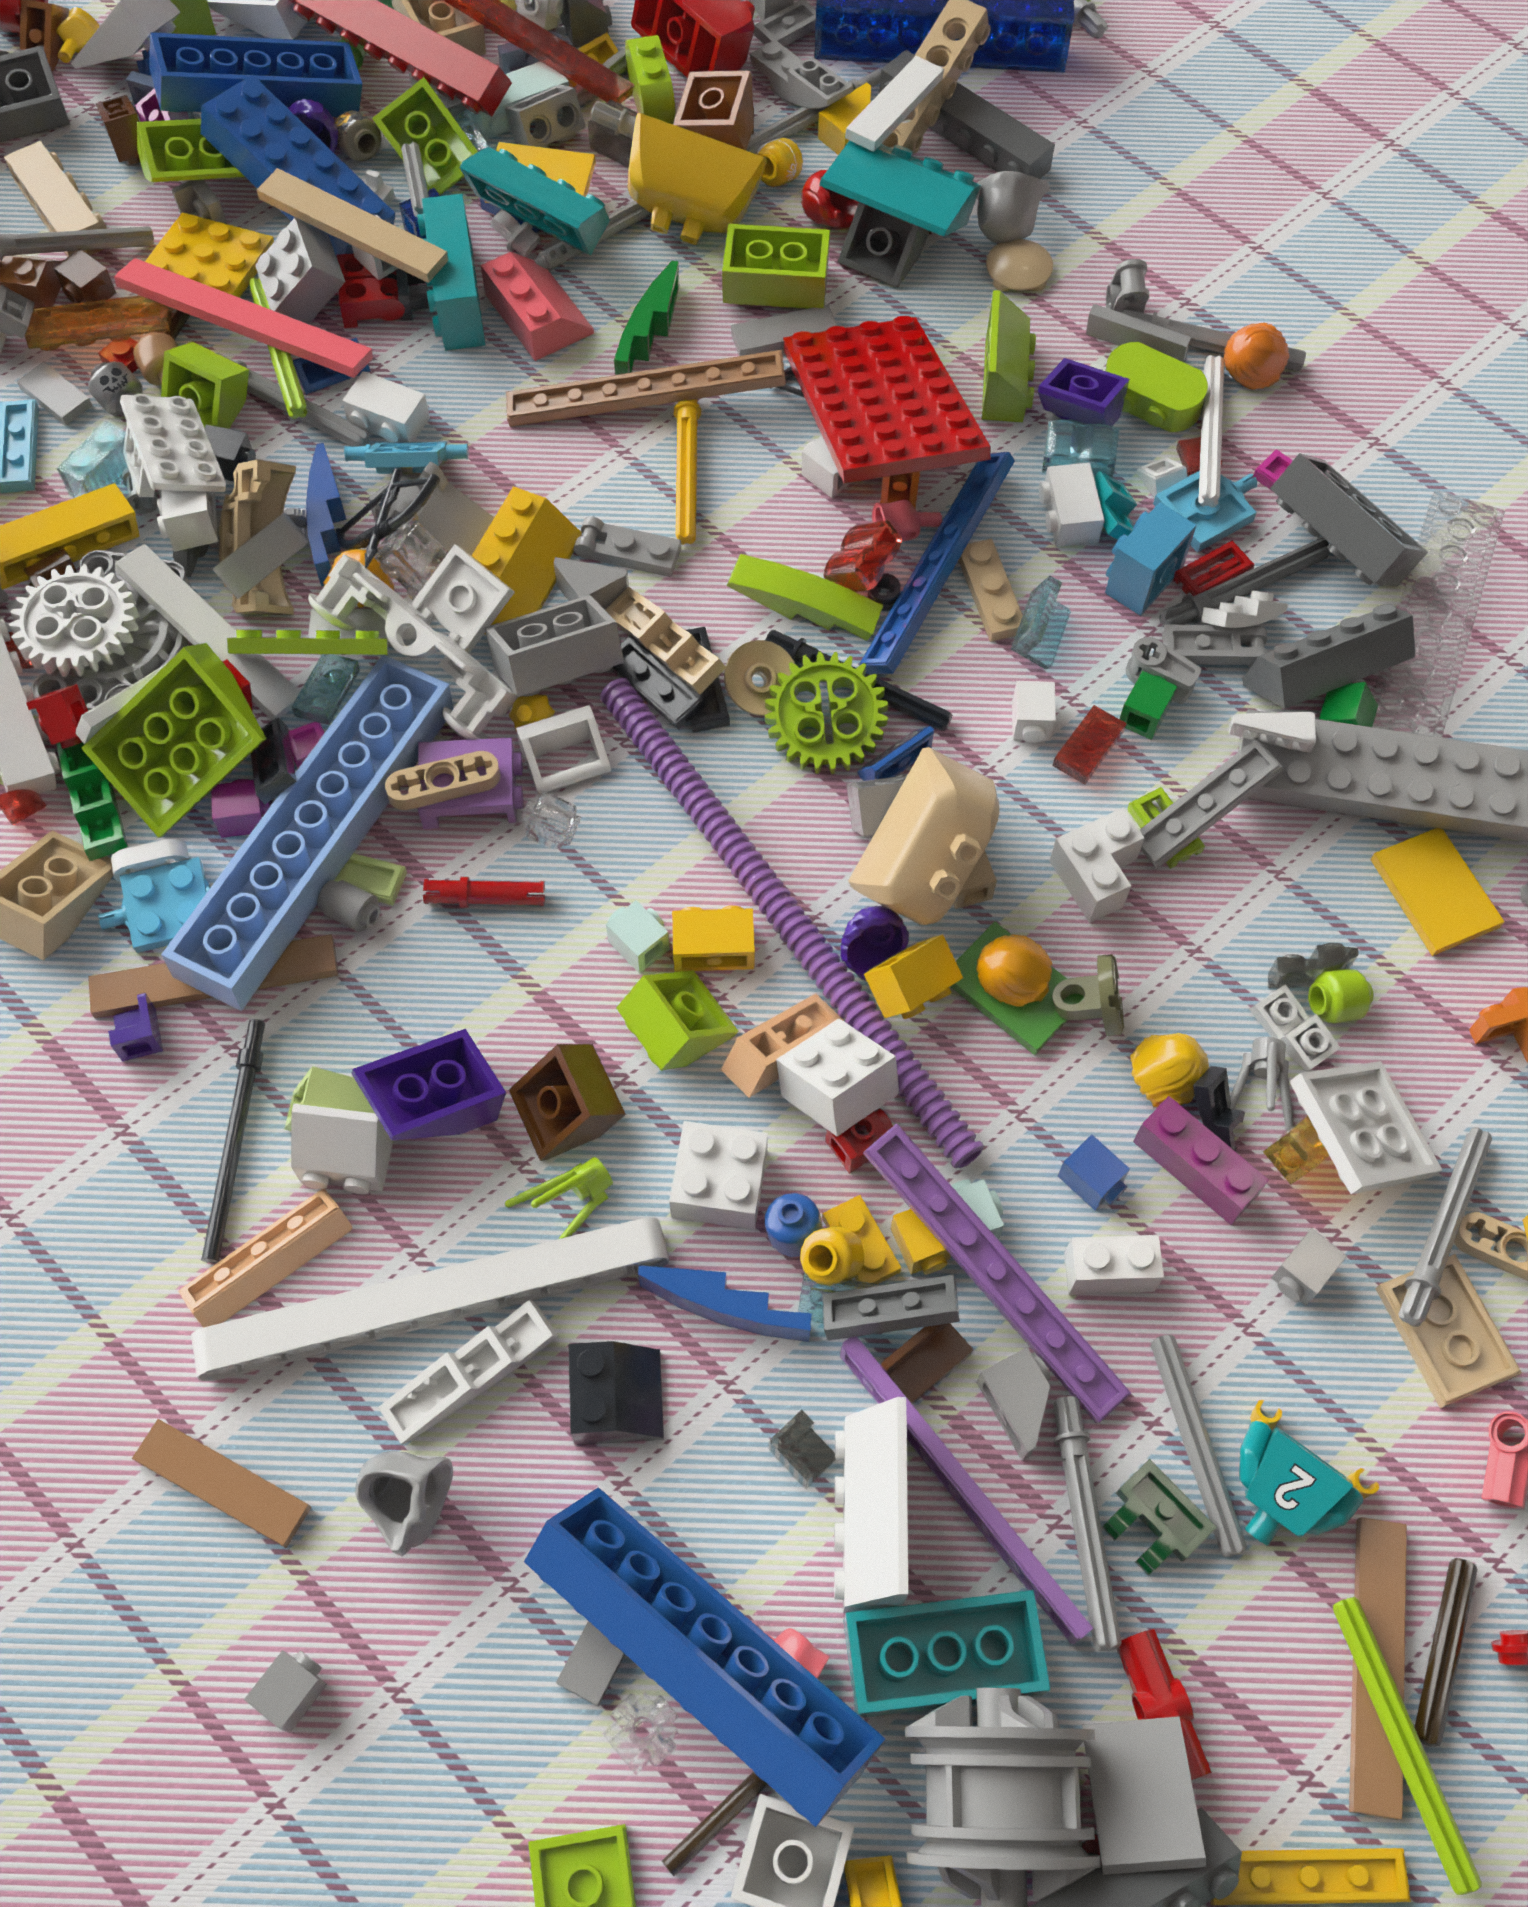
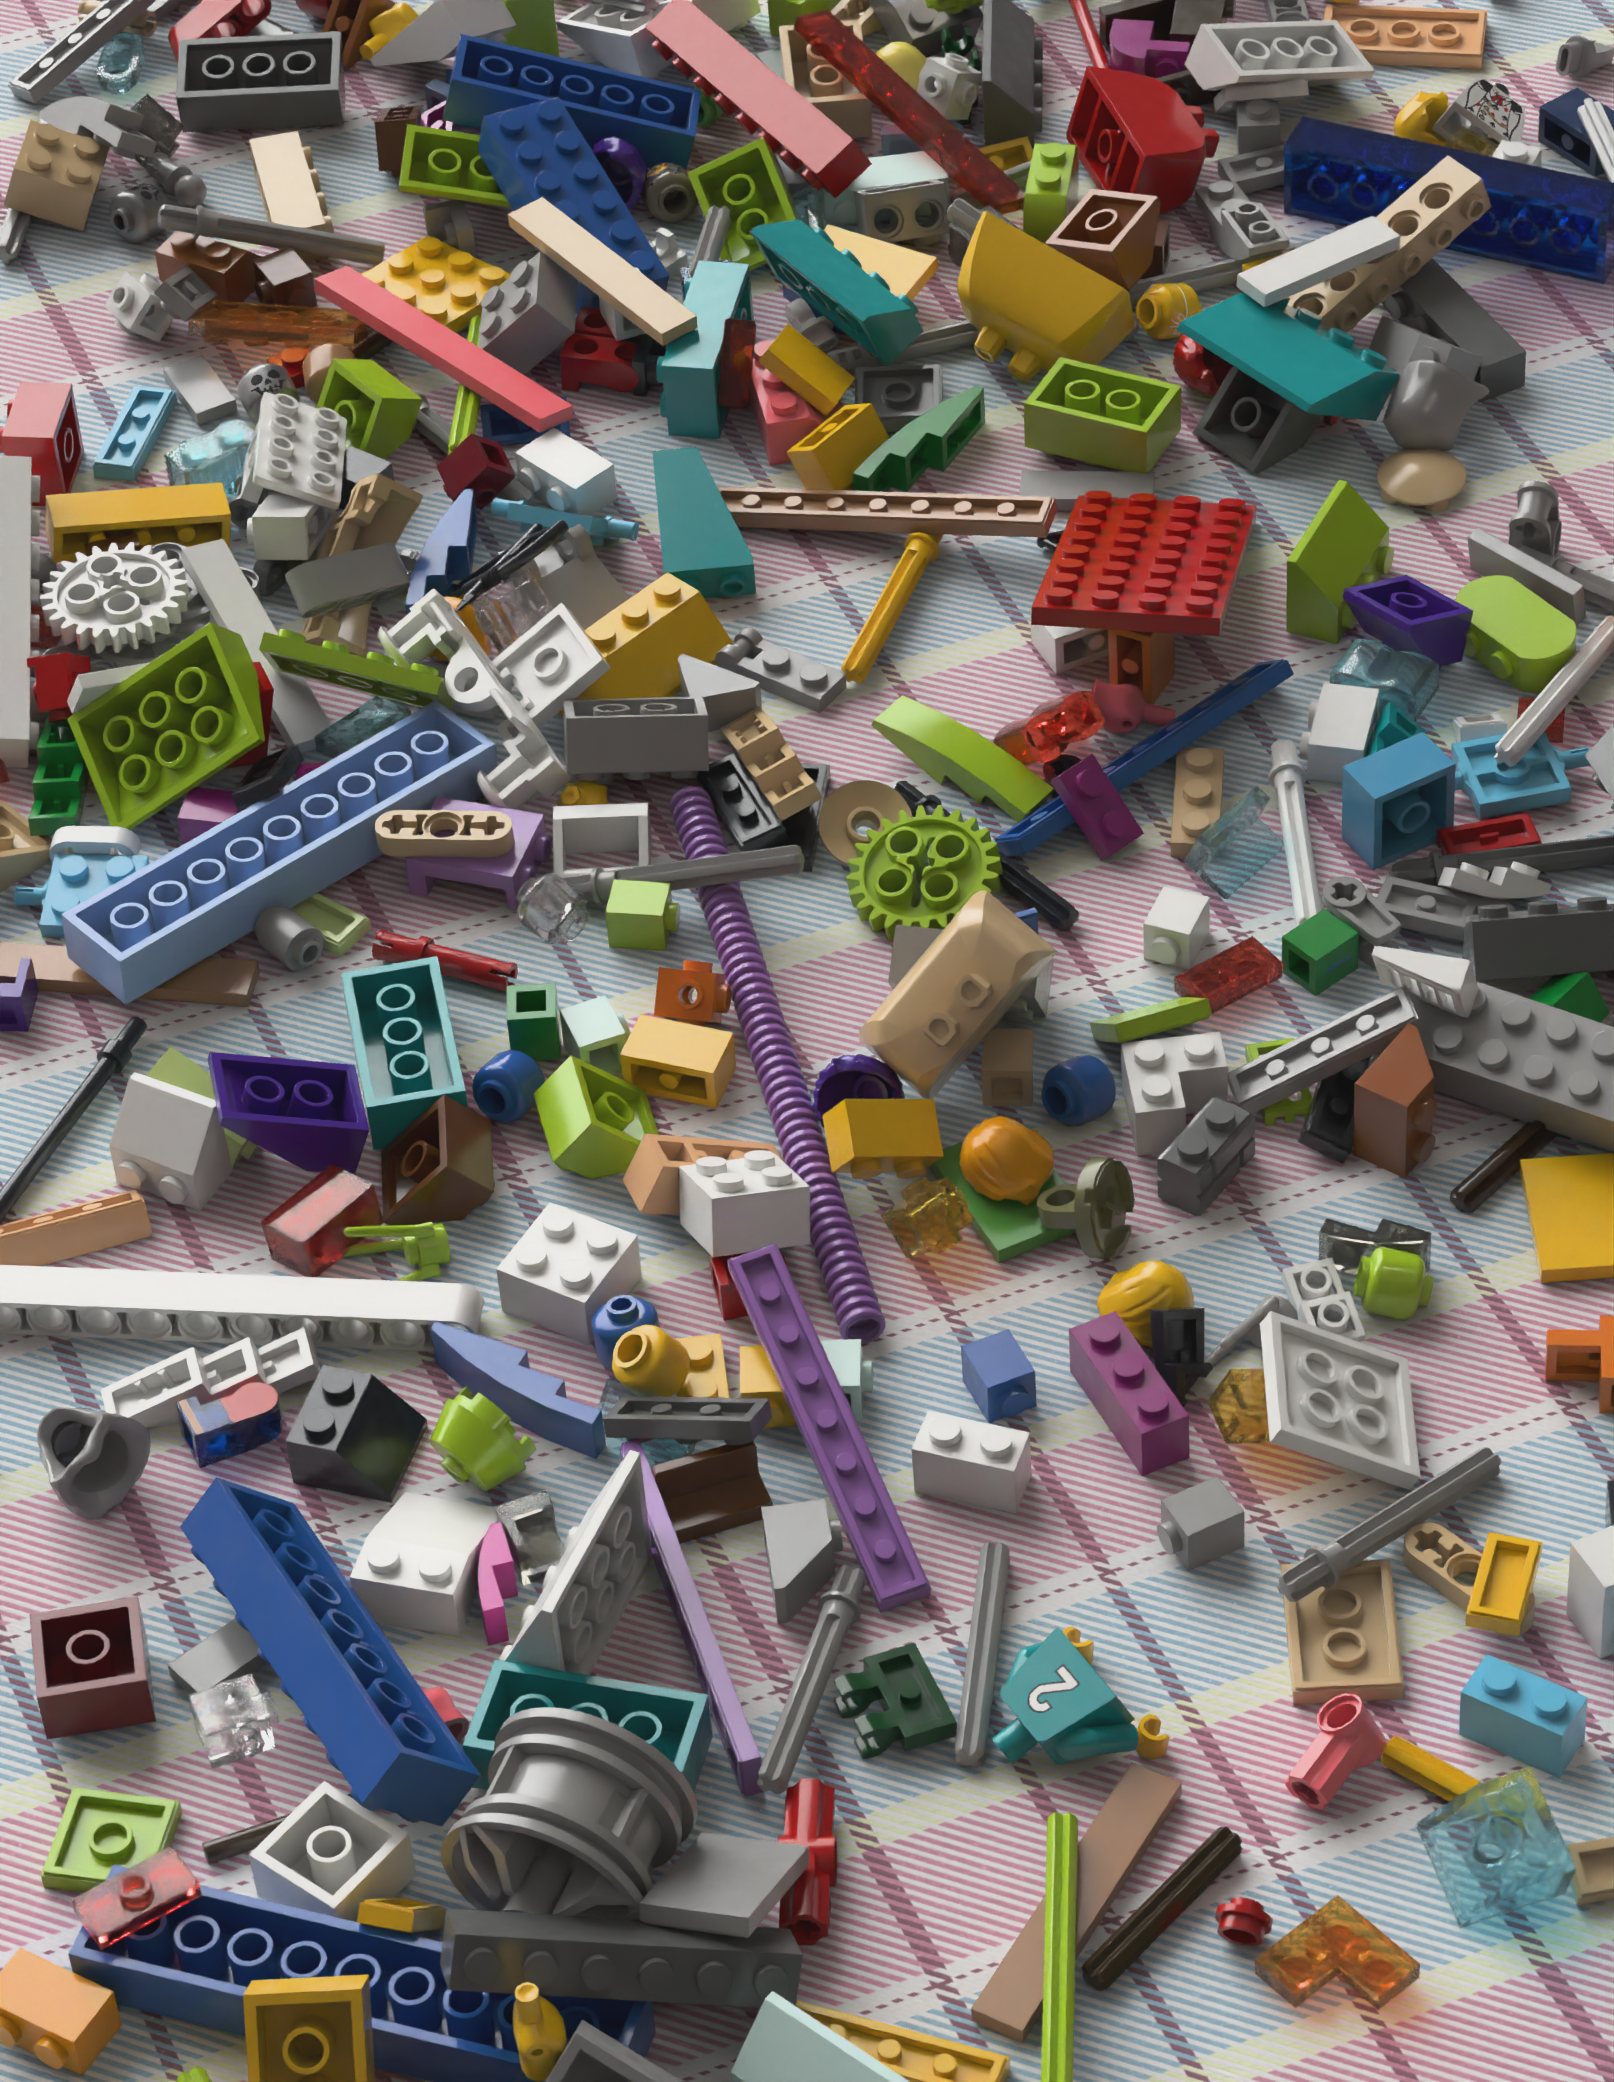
camera: 25 degrees right, 20 degrees down
(317, 422) = (477, 466): none -> dark red brick
(487, 282) = (736, 364): none -> clear red slope
(494, 994) = (401, 1043): none -> teal brick
(497, 1184) = (310, 1225): none -> clear red brick
(498, 1720) = (92, 1668): none -> dark red brick
(504, 1412) = (230, 1423): none -> clear blue leg
(513, 437) = (697, 528): none -> teal slope
(541, 276) = (806, 370): none -> yellow tile
(587, 938) = (534, 1020): none -> green brick
(590, 1003) = (507, 1086): none -> blue head
(592, 339) = (838, 447): none -> yellow brick
(609, 281) = (899, 391): none -> dark grey plate
(624, 807) = (641, 915): none -> lime brick
(649, 765) = (695, 872): none -> light grey axle
(700, 876) = (676, 990): none -> orange brick
(724, 1376) = (479, 1442): none -> lime cone
(725, 1495) = (423, 1563): none -> white slope
(789, 1496) = (495, 1583): none -> slope
(930, 618) = (1097, 807): none -> magenta plate
(975, 1038) = (928, 1217): none -> clear yellow brick
(976, 158) = (1405, 344): none -> light grey slope
(1031, 882) = (1078, 1090): none -> blue head
(1050, 554) = (1288, 779): none -> white axle
(1059, 804) = (1151, 1019): none -> lime tile
(1154, 918) = (1206, 1156): none -> dark grey brick
(1224, 849) = (1331, 1113): none -> black tile
(1282, 835) = (1396, 1107): none -> dark orange slope
(1358, 861) = (1501, 1166): none -> dark brown axle

